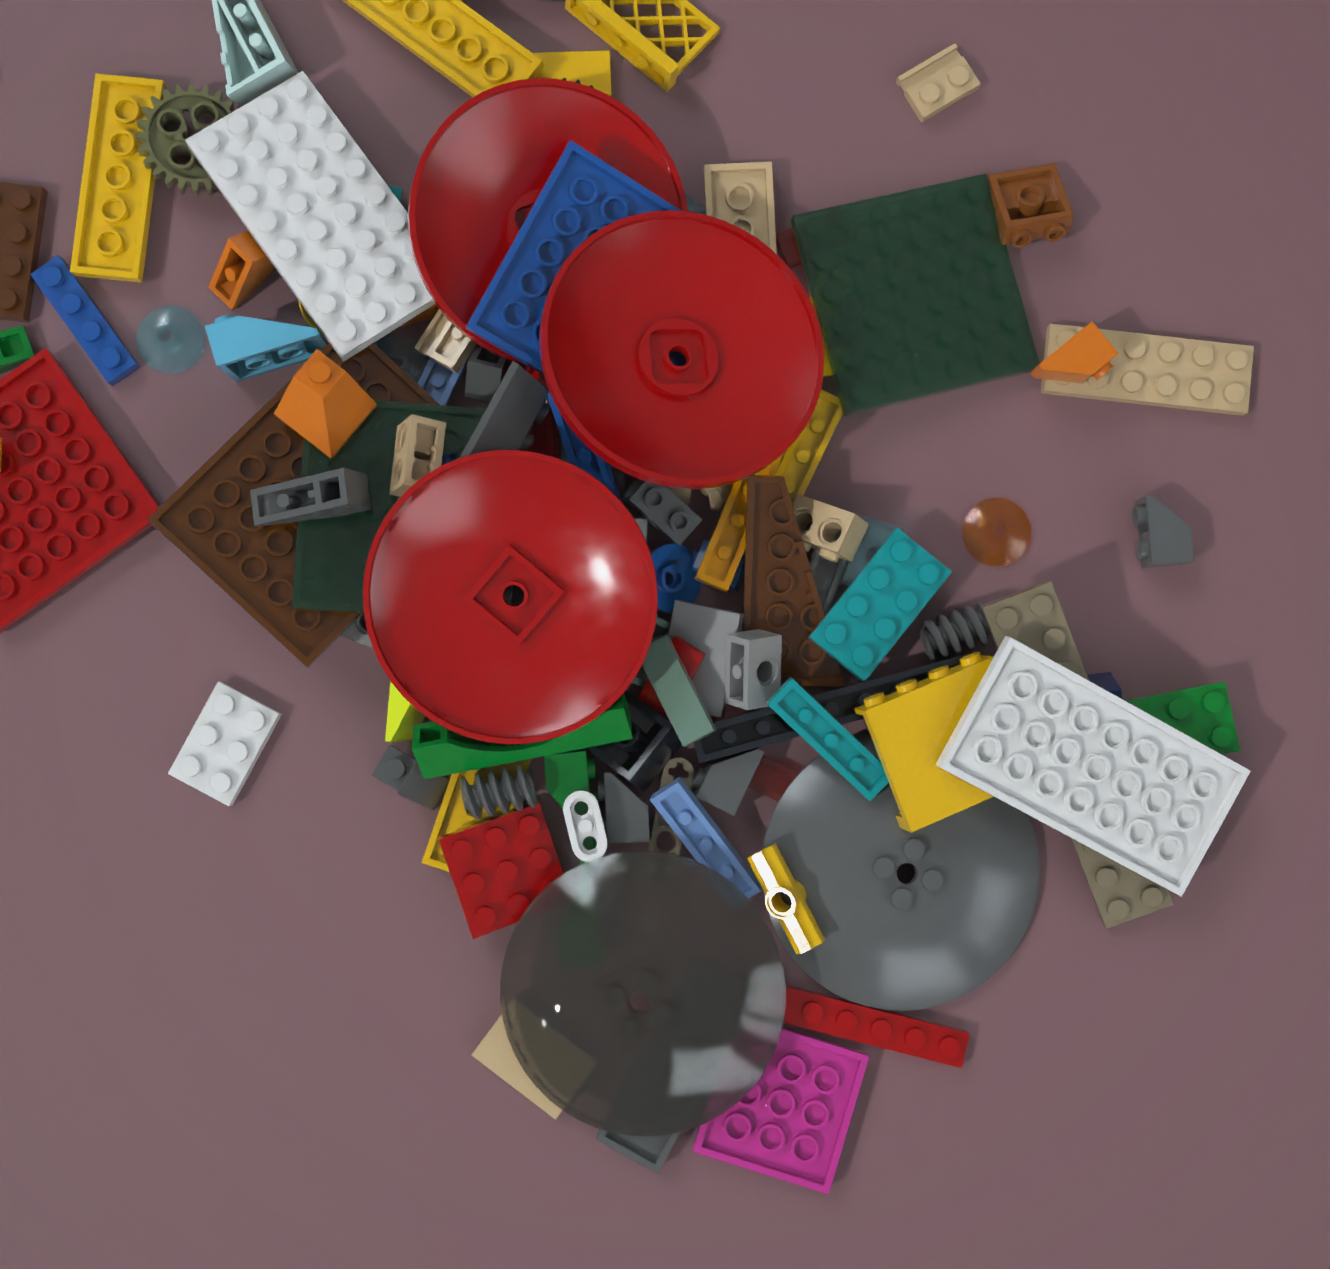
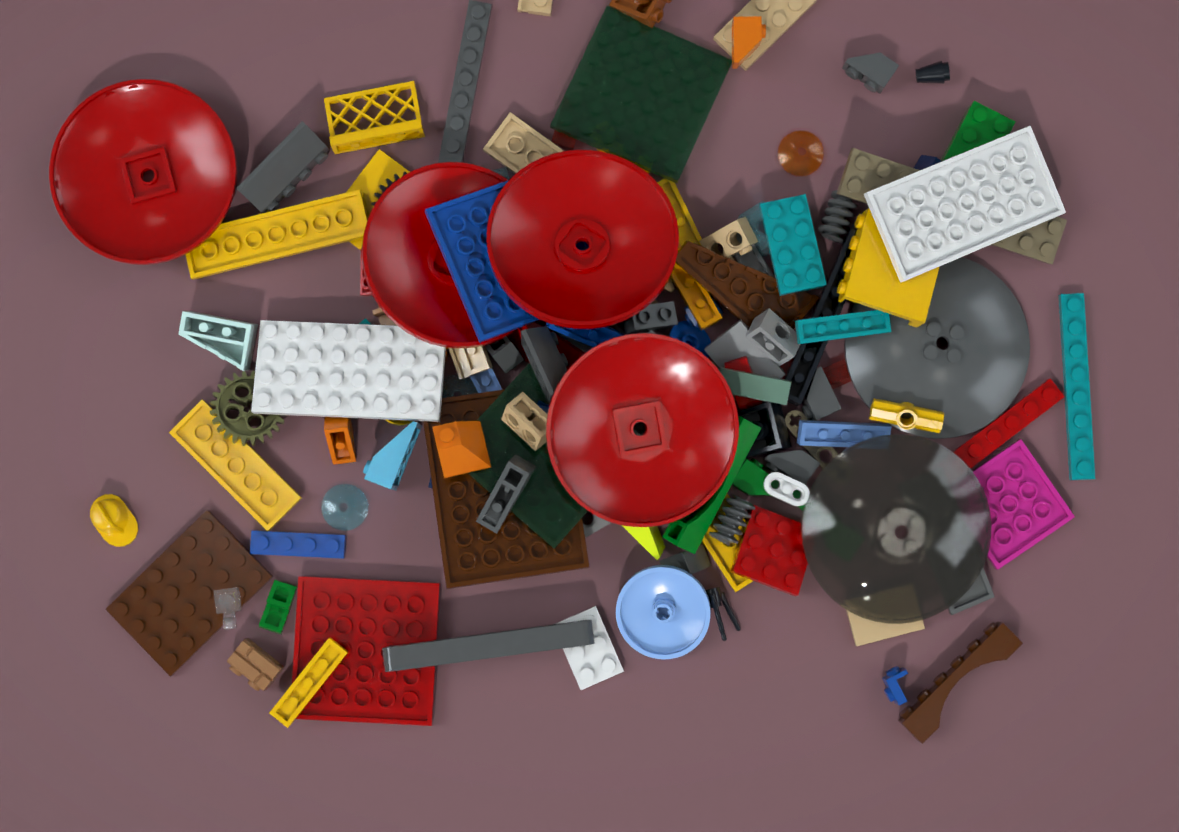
camera: 45 degrees left, 0 degrees up
(130, 625) = (488, 645): none -> dark grey beam
(330, 796) = (663, 612): none -> light blue dish
(393, 842) = (715, 597): none -> black plant
(451, 1140) = (893, 689): none -> blue bracket
(597, 1218) = (924, 716): none -> reddish brown arch
(766, 86) = (465, 82): none -> dark grey plate
(984, 1073) = (1076, 386): none -> teal plate
(1217, 610) = (933, 73): none -> black cone

